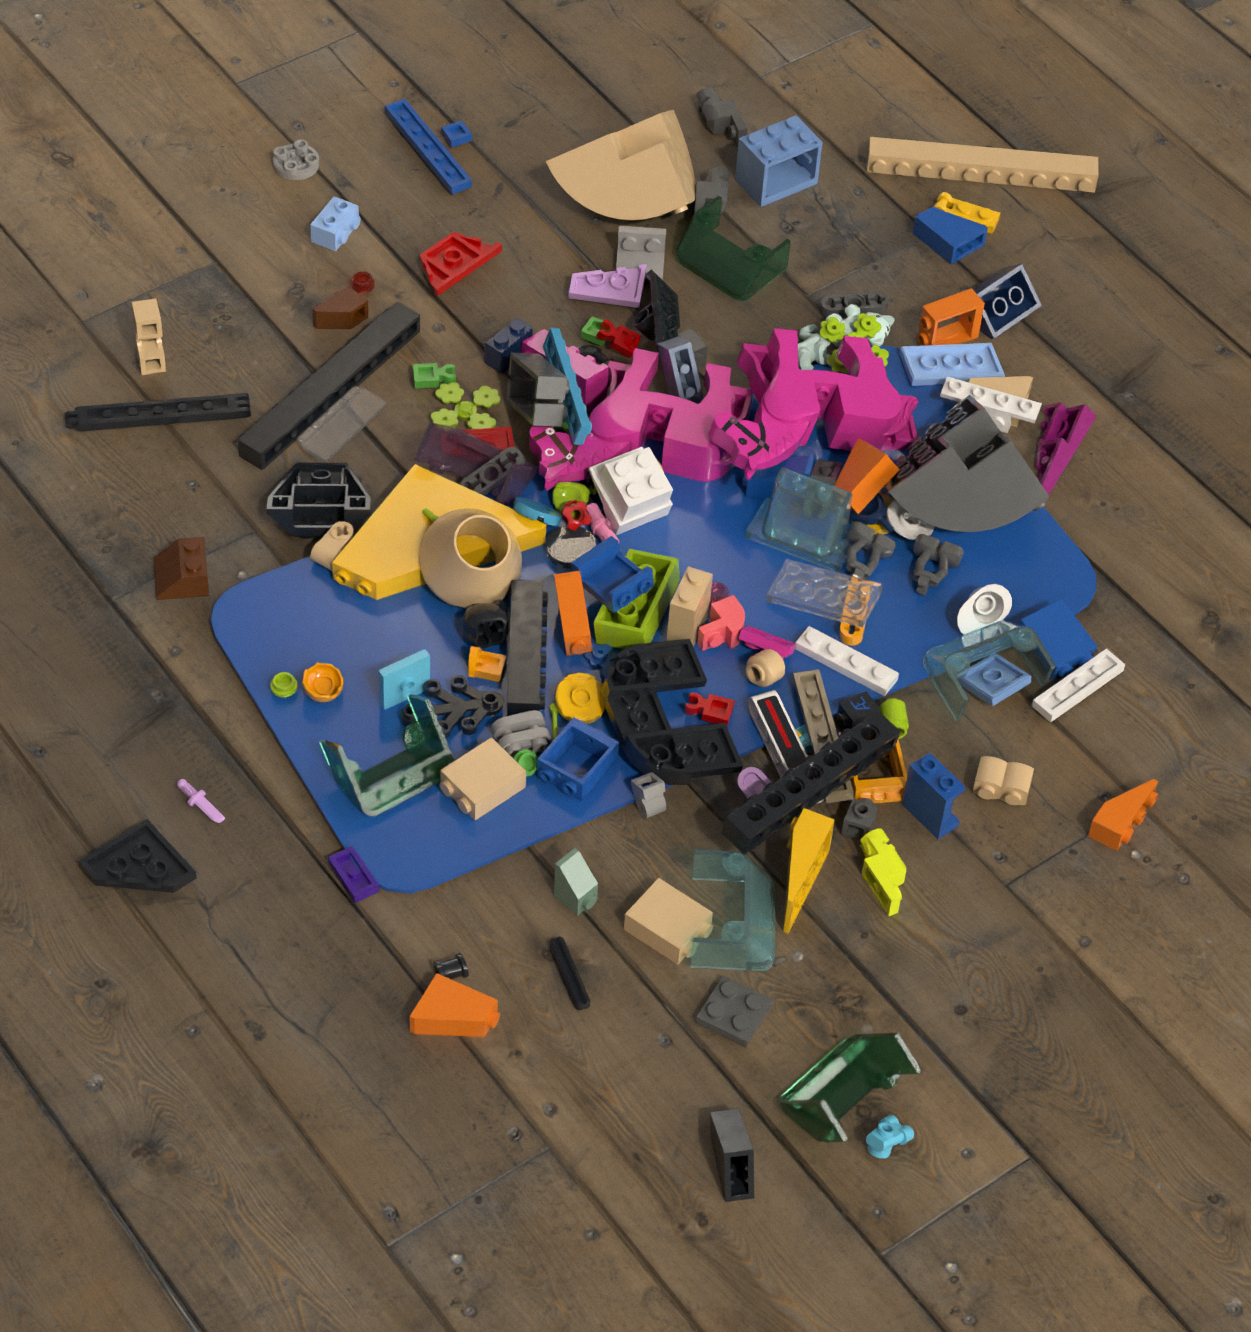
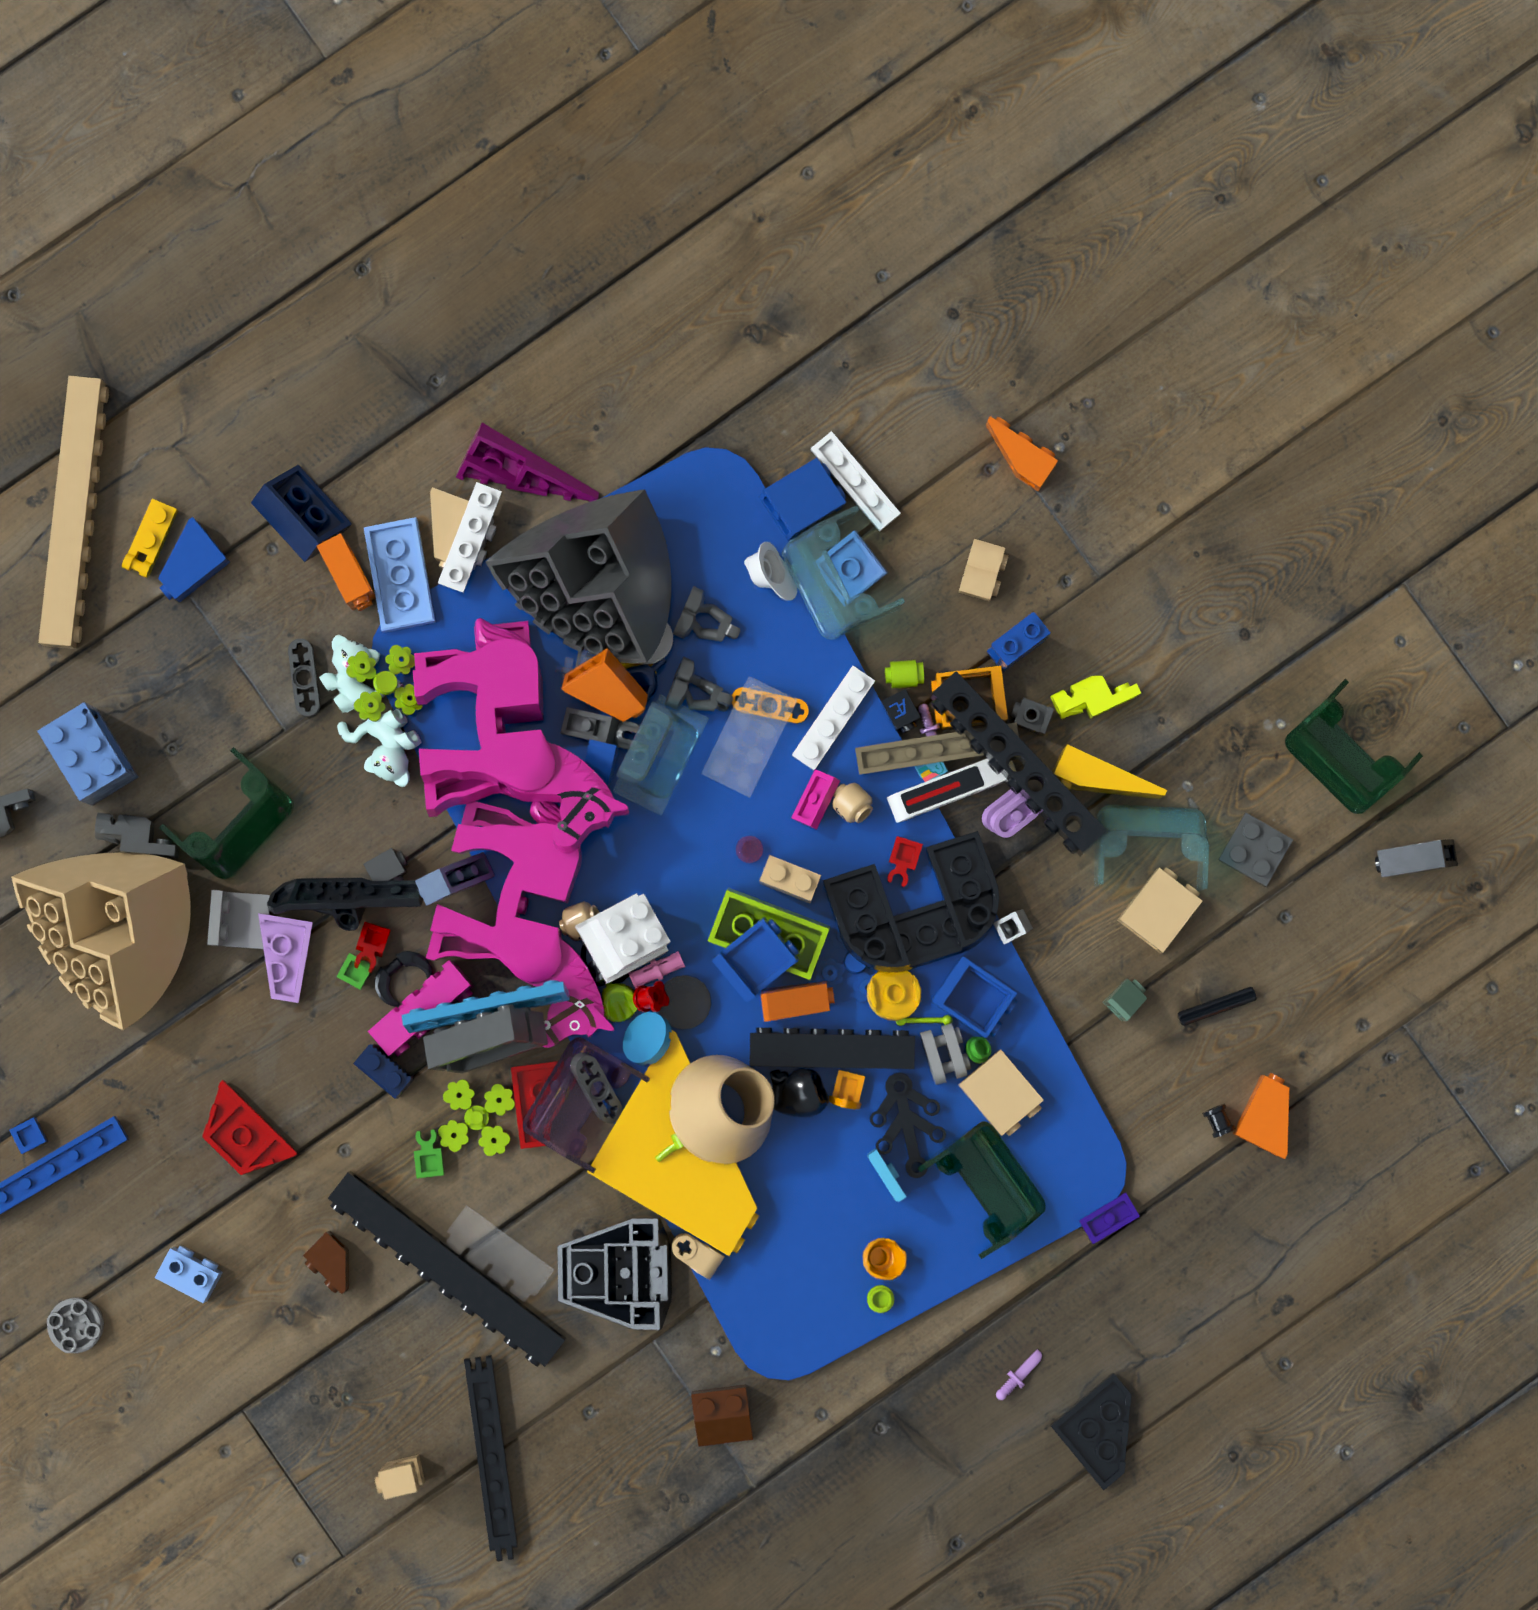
camera: 85 degrees left, 35 degrees up
(362, 282) = (273, 1242): clear red plate -> none
(726, 621) = (792, 836): coral brick -> none
(887, 1135) = (1390, 709): medium azure plate -> none

